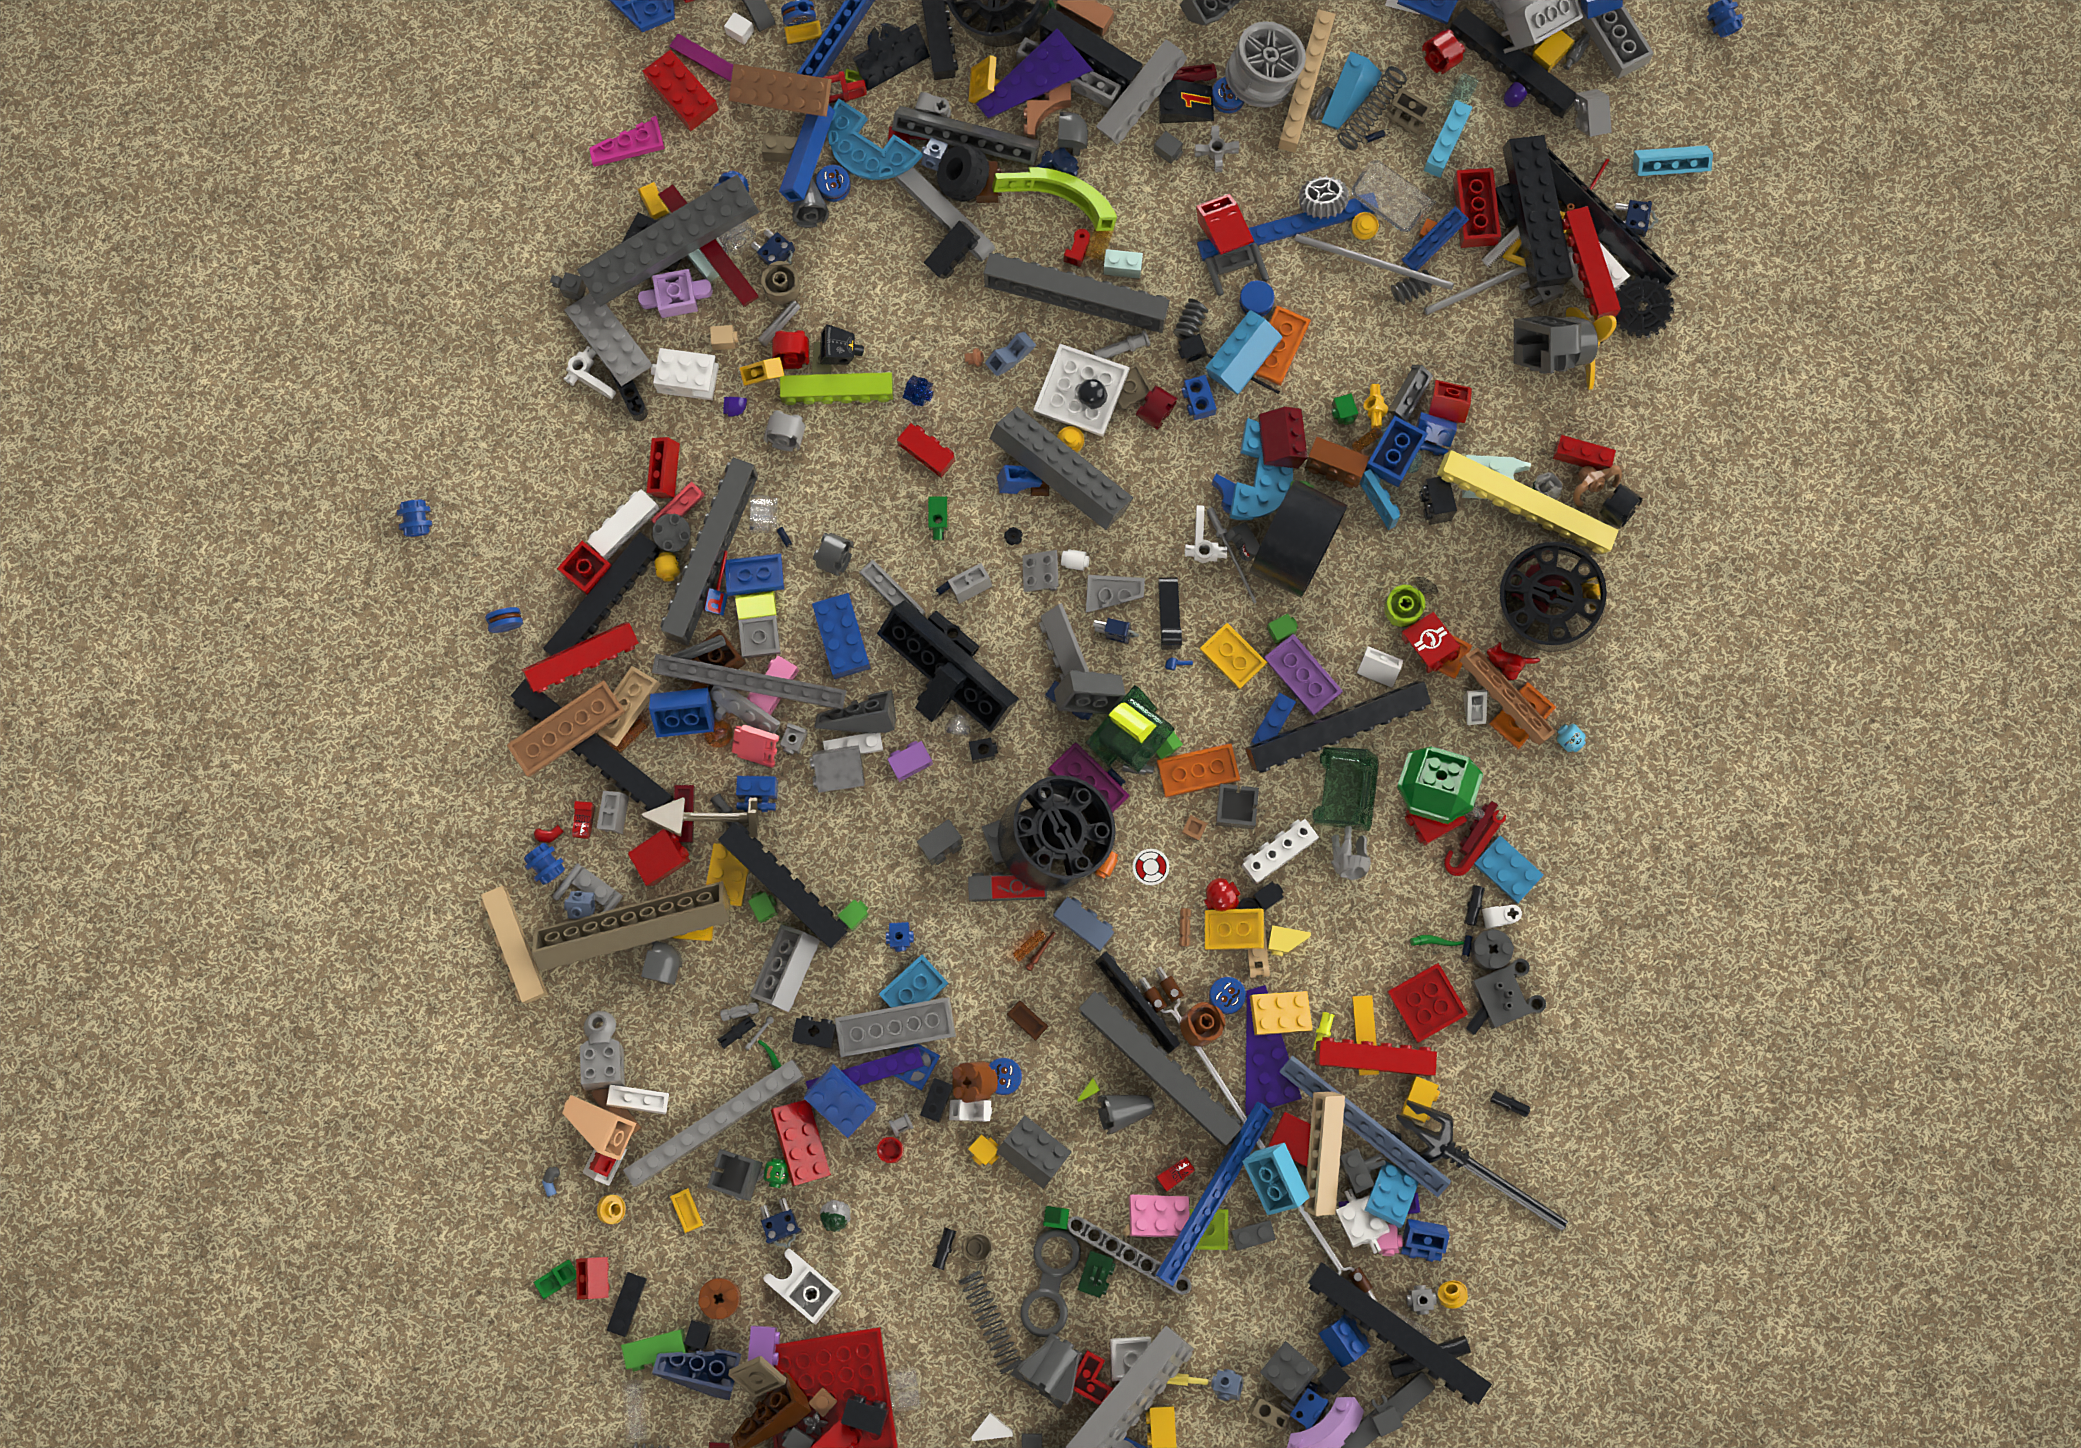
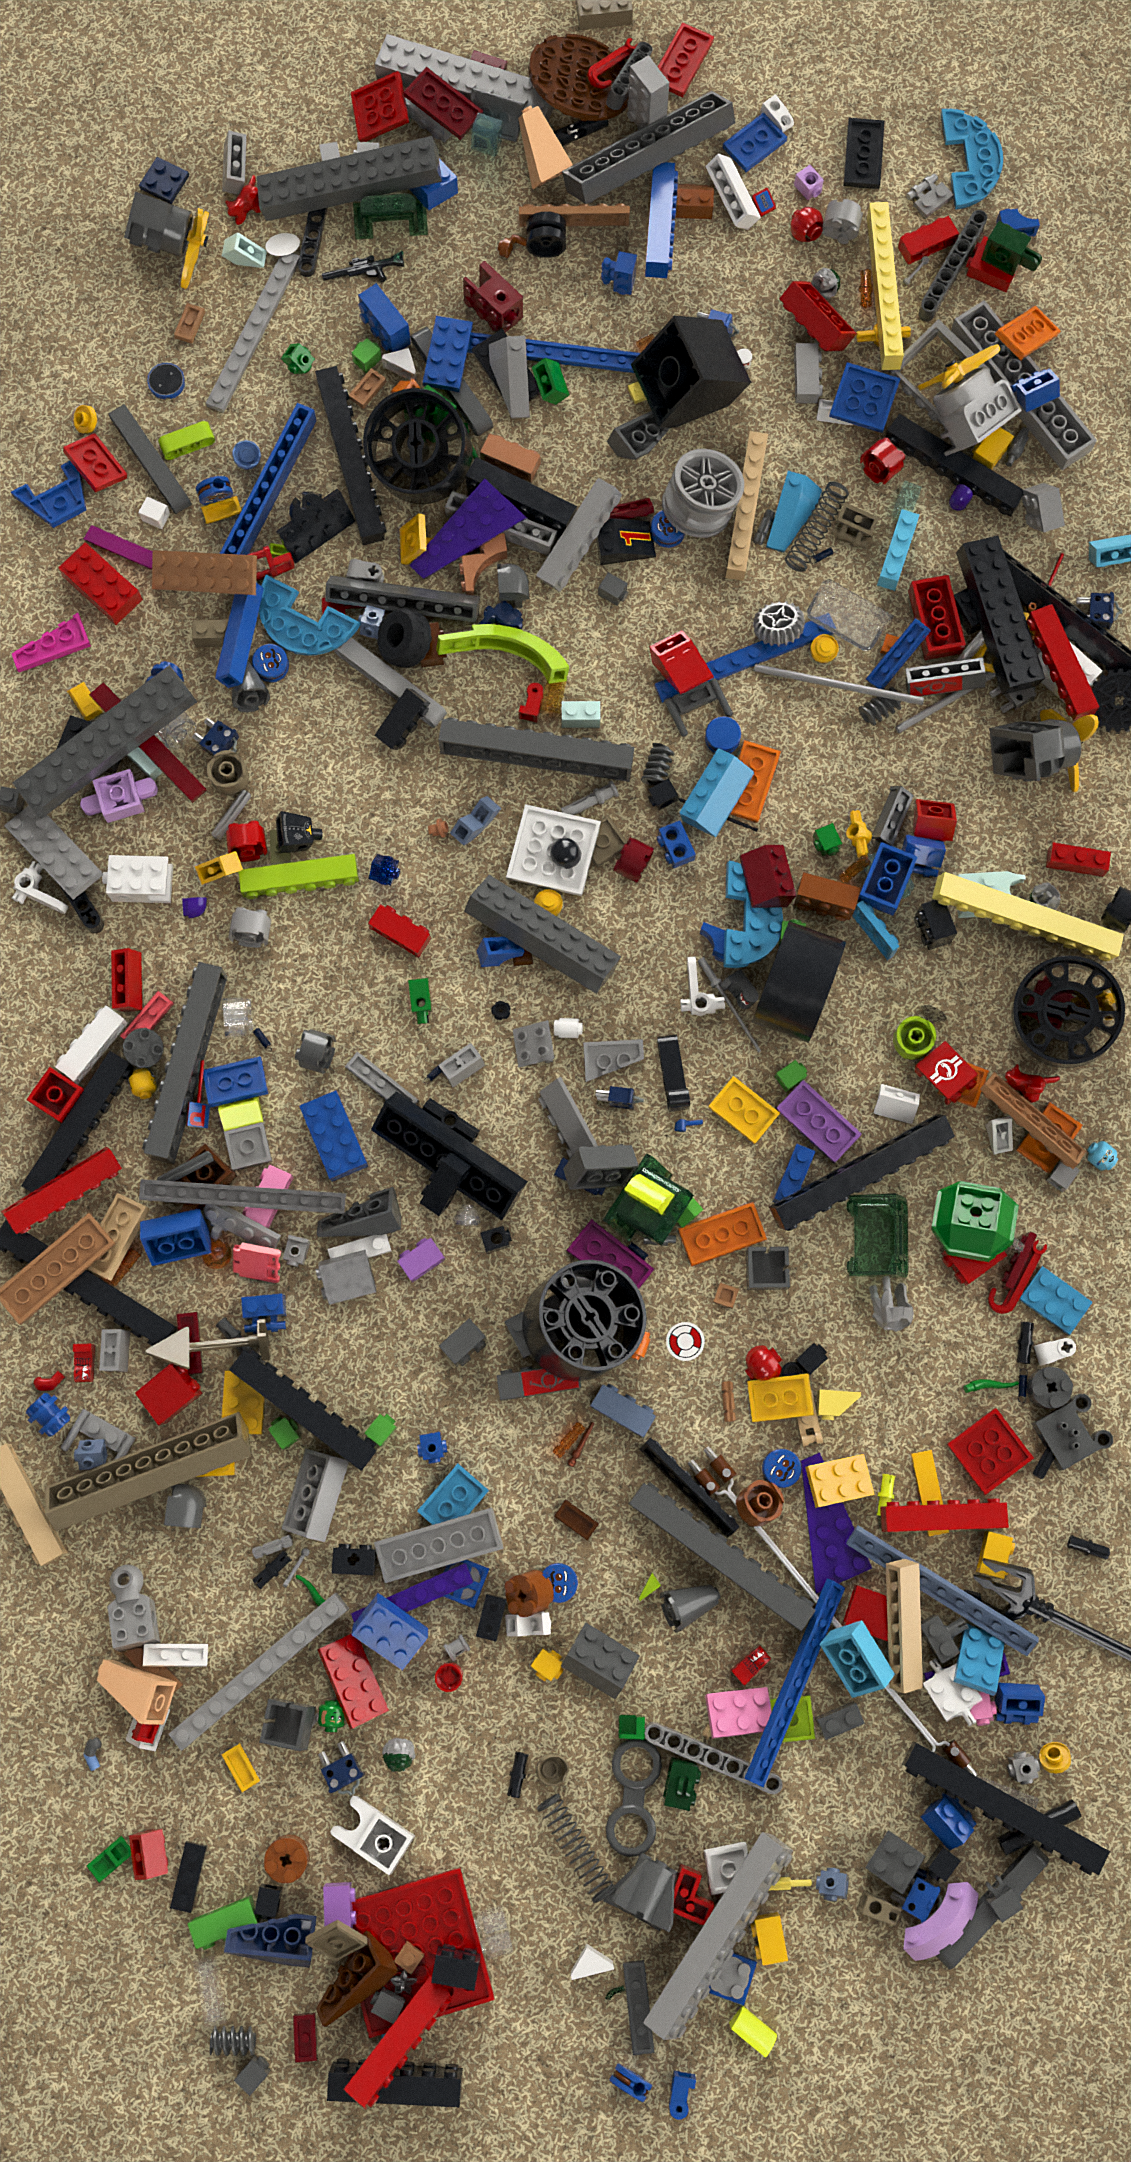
camera: 10 degrees left, 0 degrees up
(611, 1209) = (160, 1777): yellow plate -> none
(723, 337) = (174, 836): tan brick -> none
(1201, 150) = (662, 578): light grey pin -> none
(1280, 851) = (817, 1310): white brick -> none
(1478, 266) = (945, 677): none -> dark grey brick
(1530, 753) = (1062, 1176): none -> light grey brick
(1594, 481) = (1093, 886): medium nougat piece -> none

